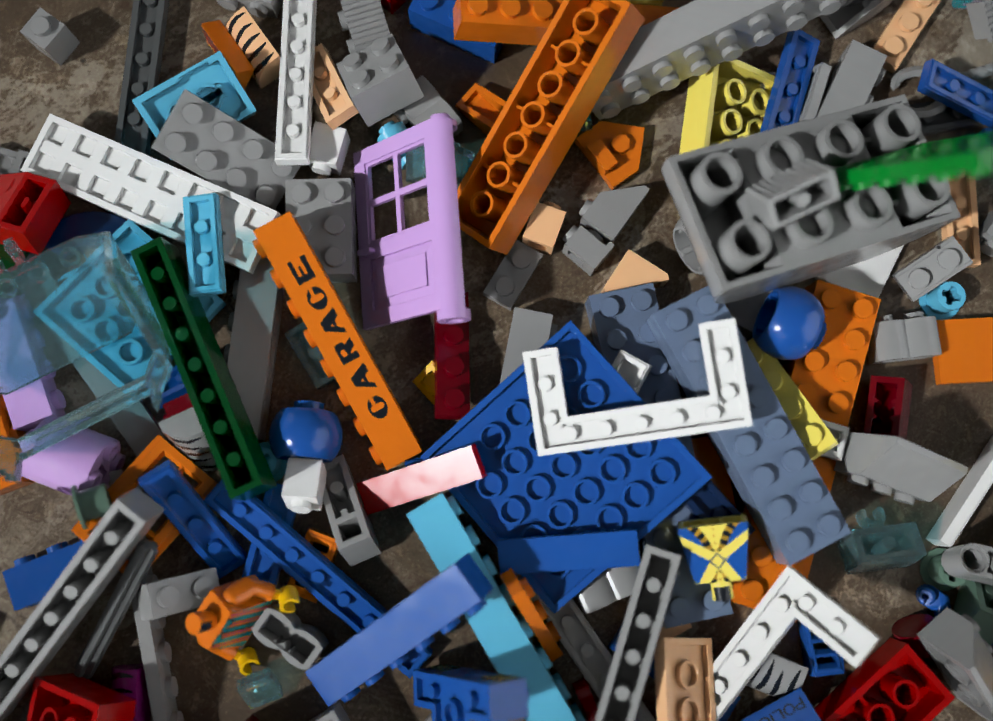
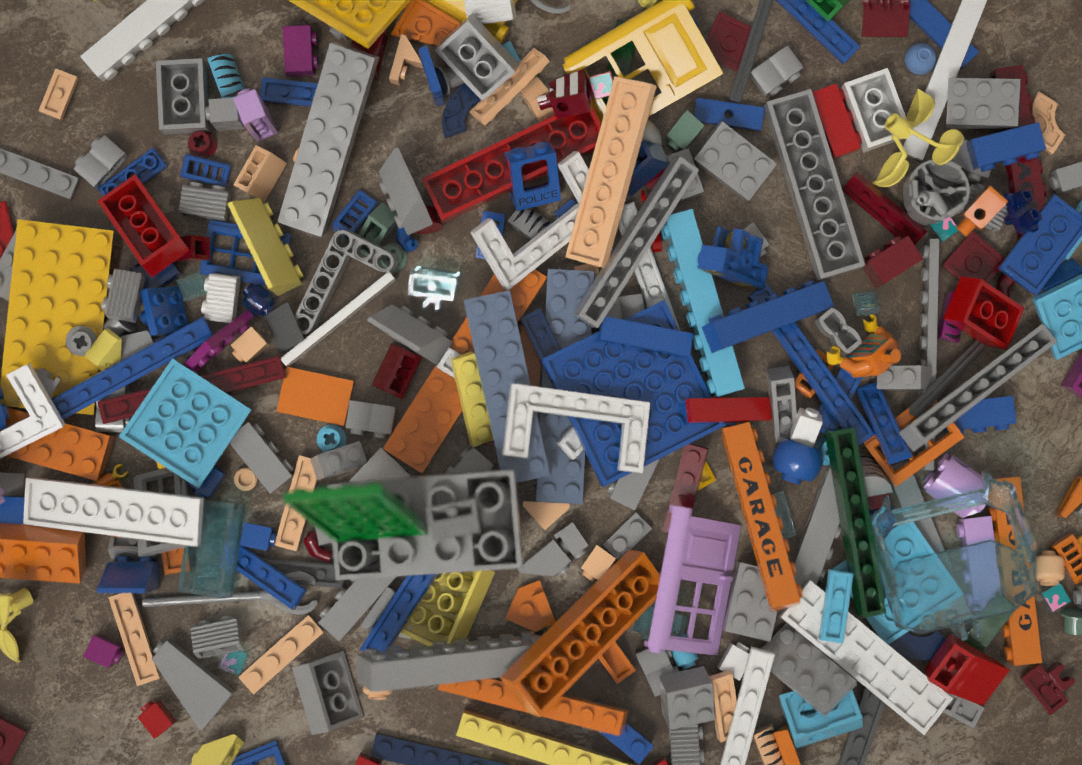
camera: 165 degrees left, 5 degrees up
(91, 503) = (945, 449): sand green piece -> none
(533, 613) = (677, 303): orange plate -> none
(716, 551) = (552, 311): torso -> none
(789, 323) = (456, 446): blue wheel -> none

